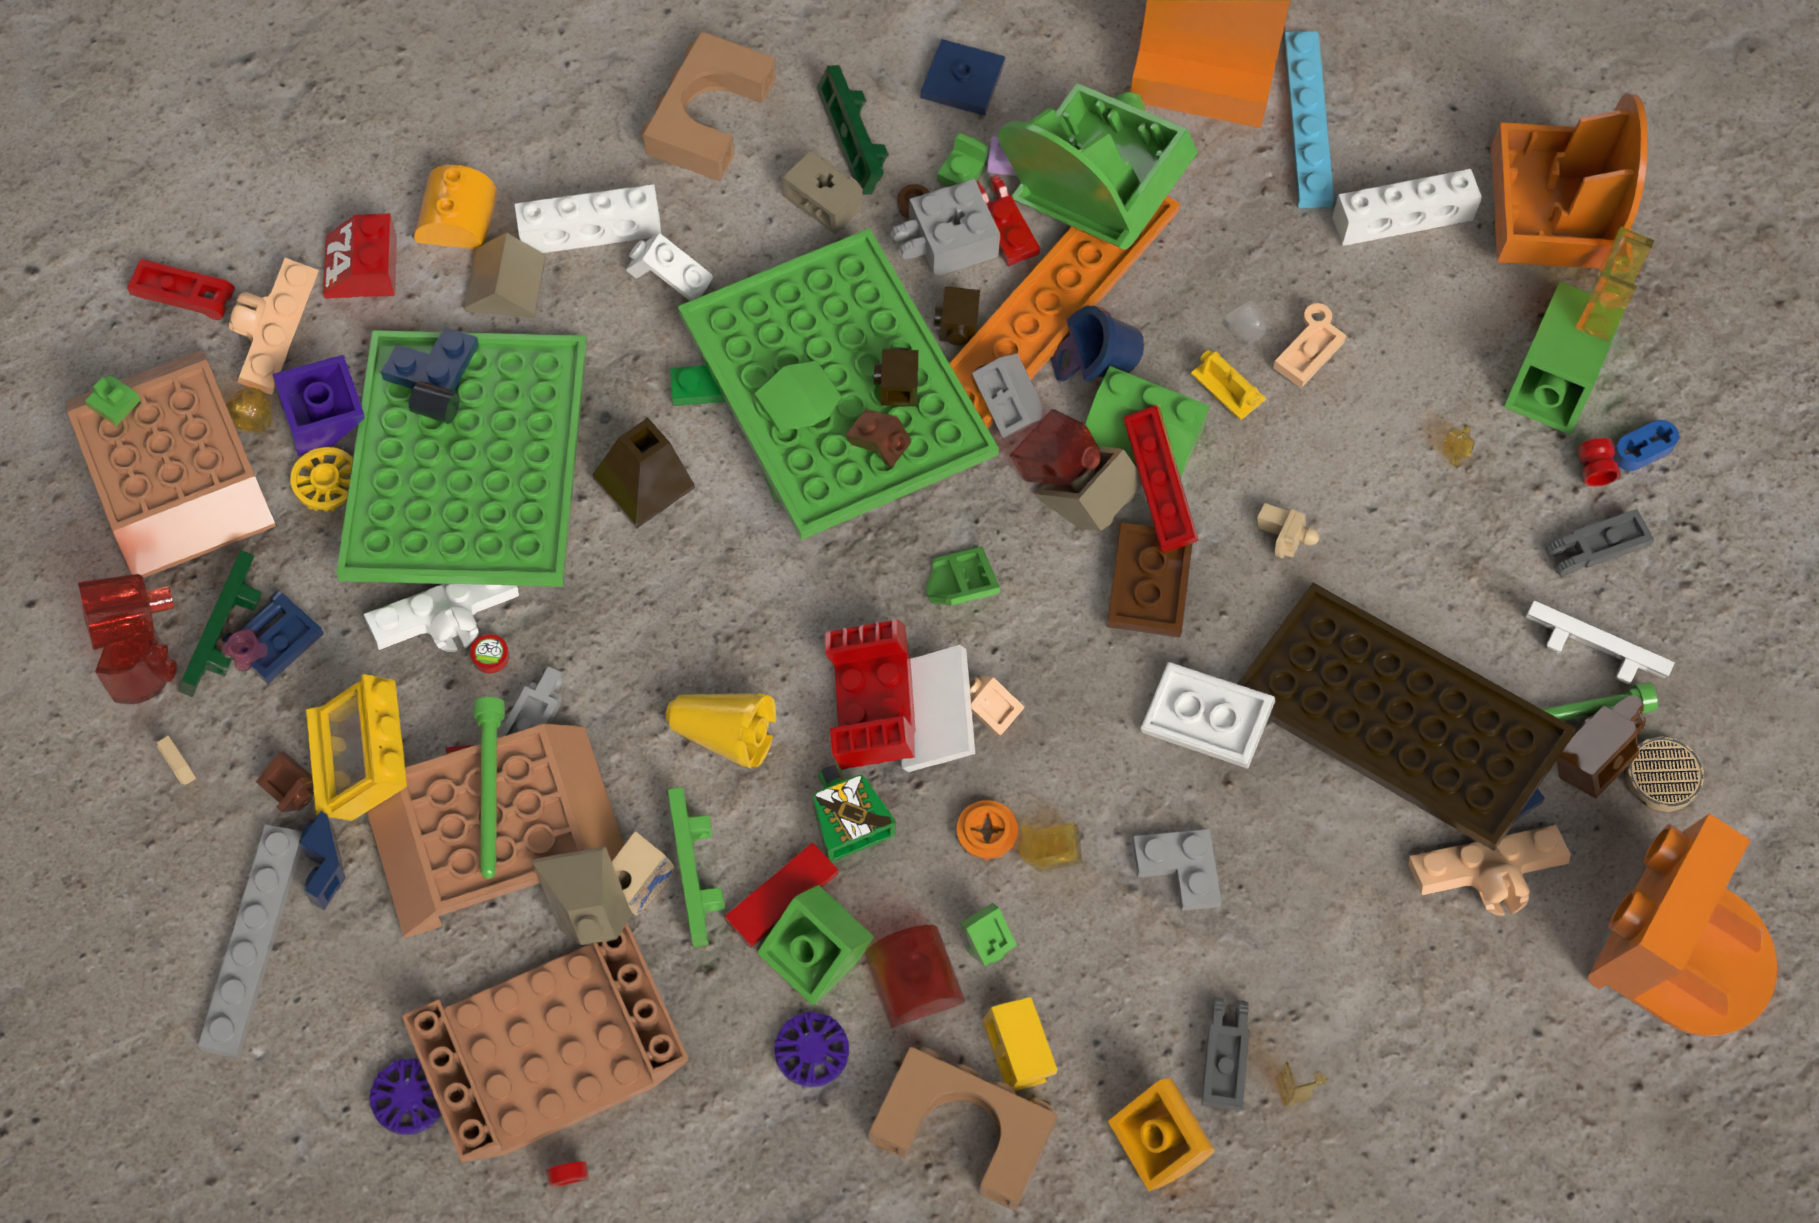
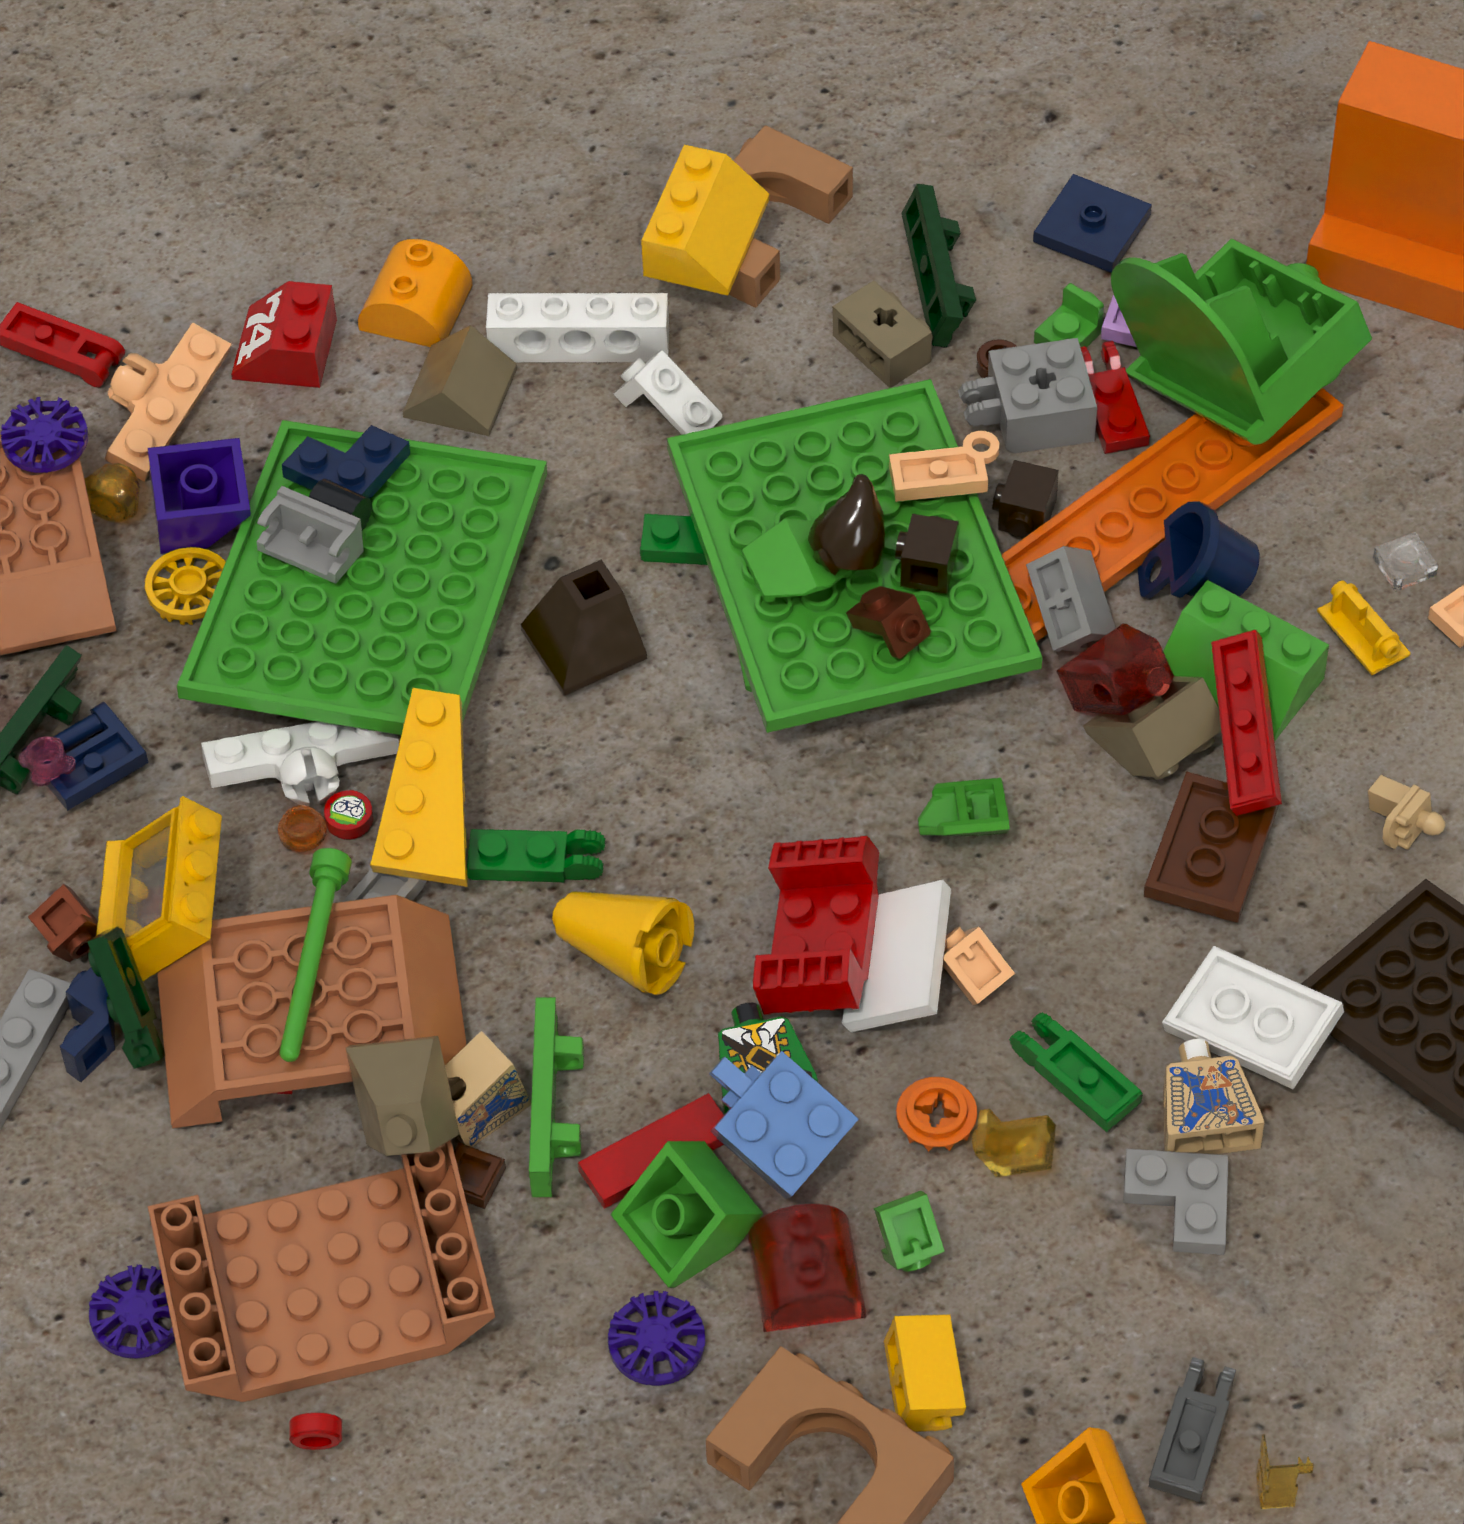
camera: 15 degrees right, 10 degrees down
(188, 376) = (44, 435): none -> dark purple wheel
(349, 840) = (126, 997): none -> dark green hinge
(416, 429) = (310, 535): none -> light grey hinge
(456, 672) = (302, 828): none -> clear orange plate
(550, 640) = (424, 807): none -> yellow wing
(639, 665) = (534, 855): none -> green hinge
(649, 936) = (478, 1173): none -> reddish brown tile
(671, 122) = (703, 222): none -> yellow slope
(837, 371) = (850, 531): none -> dark brown hat
(876, 864) = (779, 1121): none -> medium blue hinge
(896, 306) = (943, 470): none -> light nougat hinge
(1086, 779) = (1078, 1072): none -> green hinge
(1187, 790) = (1209, 1104): none -> tan torso

